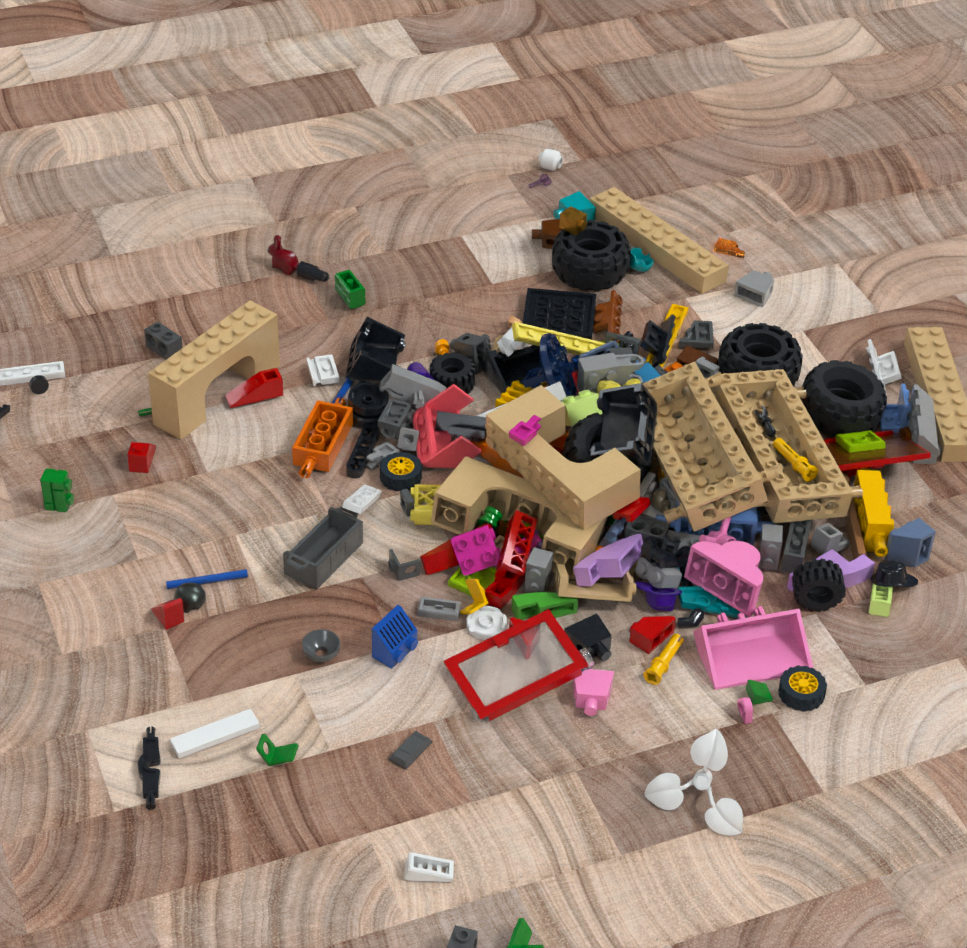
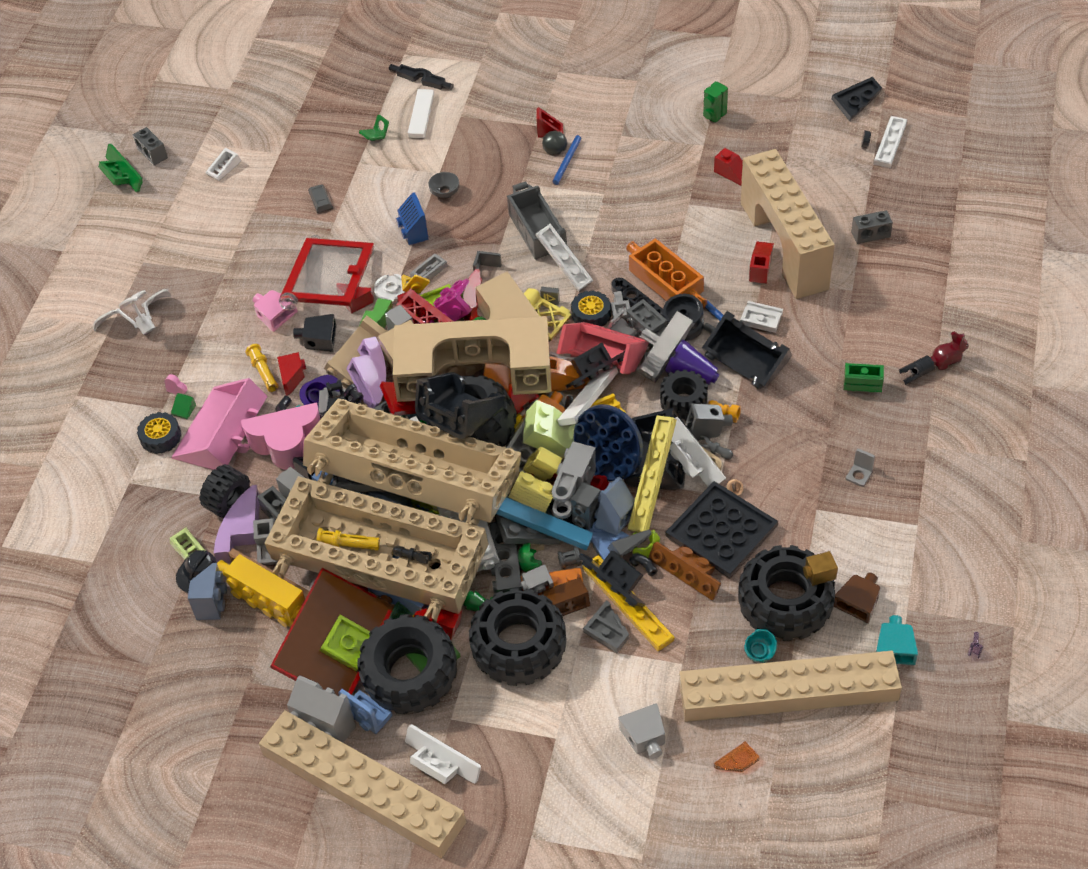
camera: 130 degrees right, 10 degrees up
(434, 271) = (862, 463): none -> light grey bracket
(525, 432) = (497, 319): dark pink plate -> none
(550, 159) = (1011, 674): white head -> none

